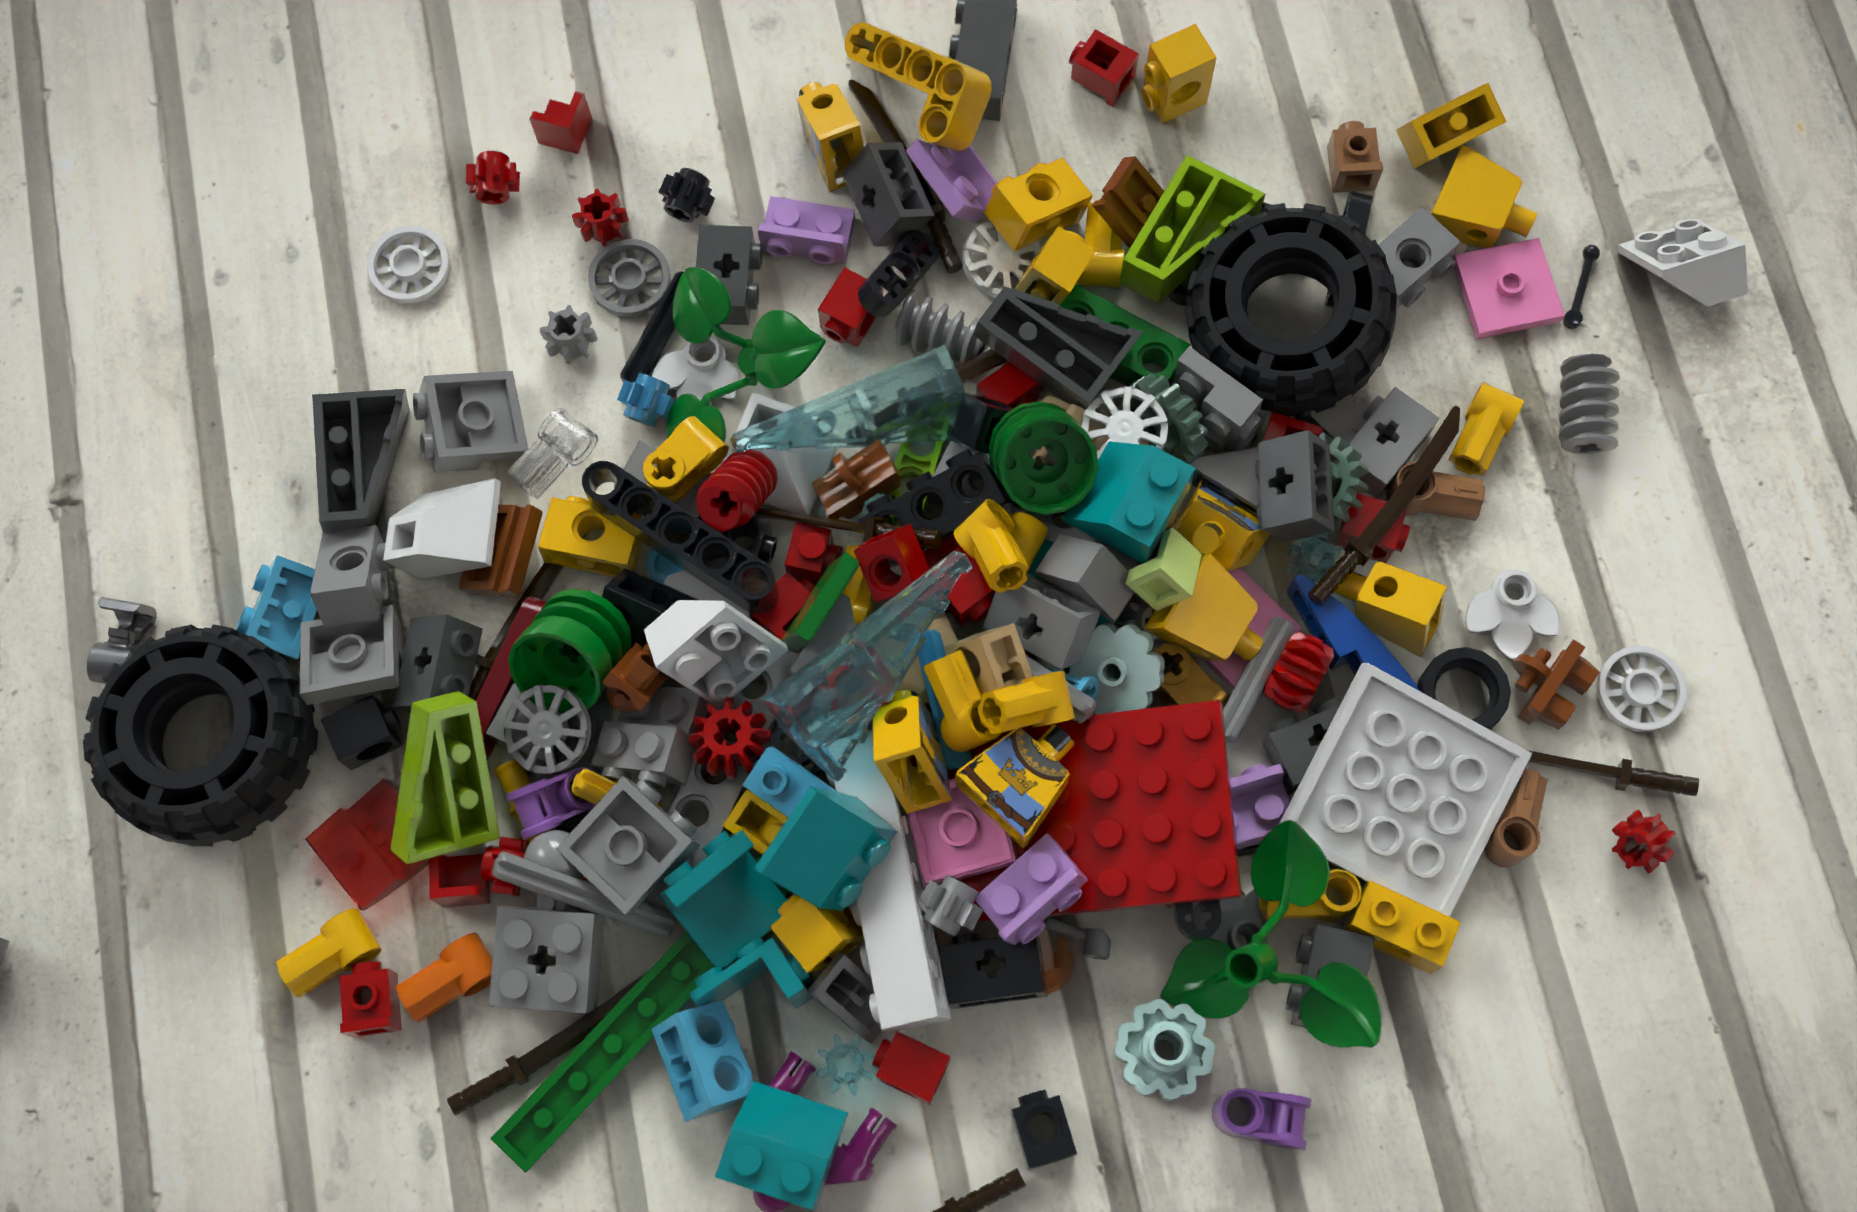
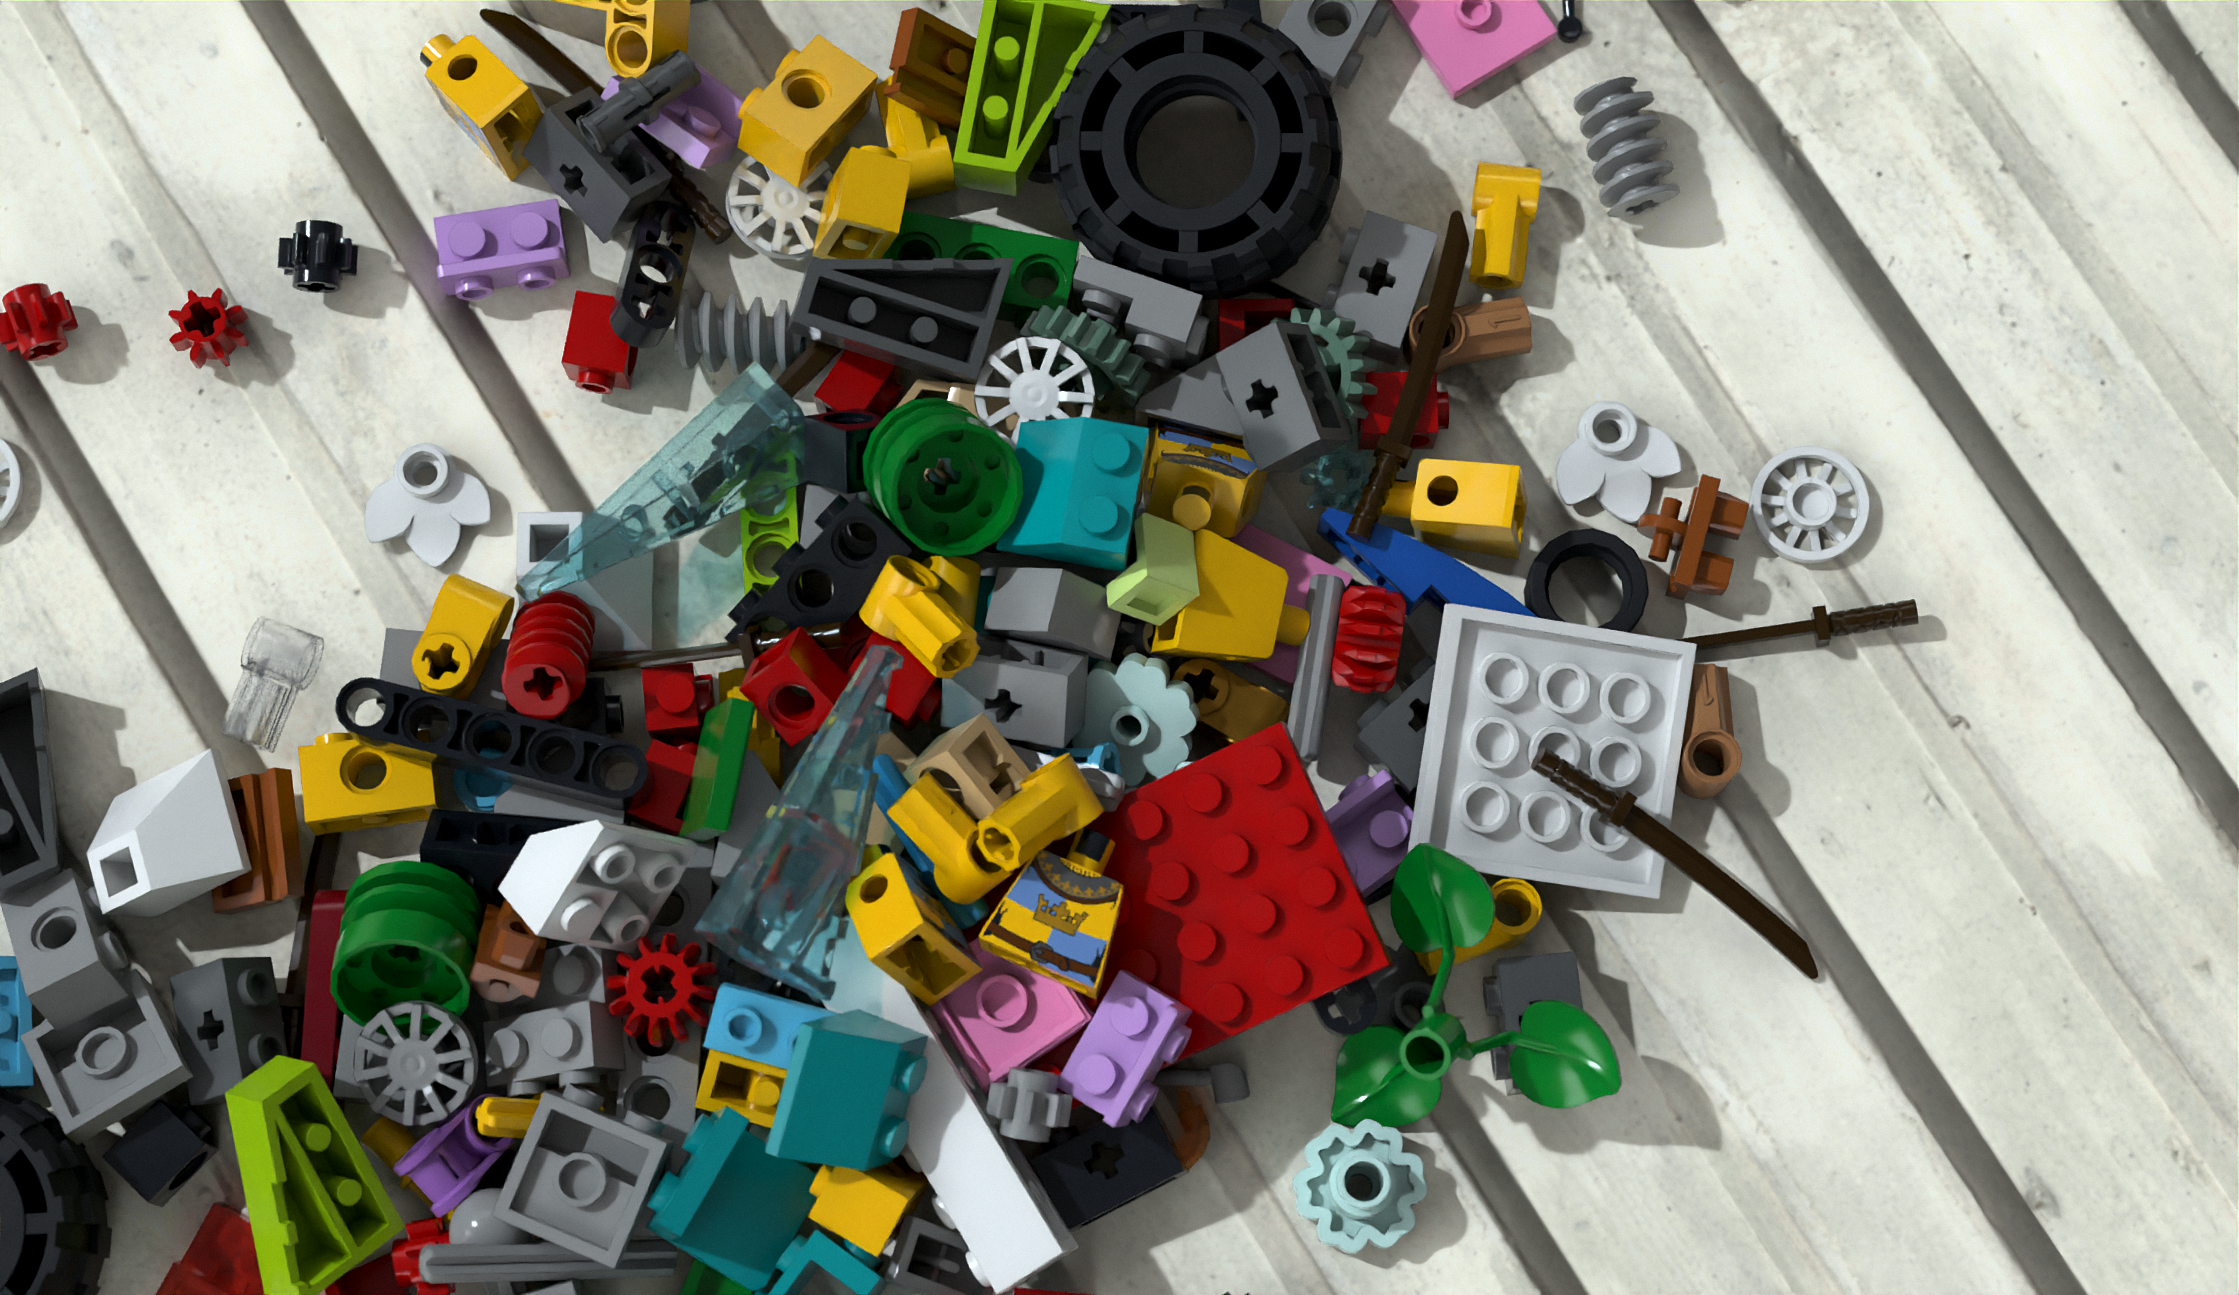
camera: 25 degrees left, 5 degrees up
(469, 419) = (139, 676): light grey plate -> none
(560, 342) = (229, 493): light grey gear -> none
(563, 124) = (102, 209): red panel -> none
(629, 277) = (280, 398): light grey wheel -> none
(646, 399) = (372, 566): dark azure gear -> none
(653, 337) = (349, 459): black axle -> none
(732, 251) = (394, 322): dark grey brick -> none
(774, 356) = (534, 447): green plant -> none
(856, 481) = (700, 582): dark orange hips -> none
(928, 156) = (638, 100): none -> dark grey pin
(1272, 1118) = (1522, 1222): medium lavender piece -> none
(1403, 927) = (1606, 924): yellow brick -> none
(1439, 850) = (1621, 812): none -> dark brown sword
(1643, 841) = (1870, 706): red gear -> none

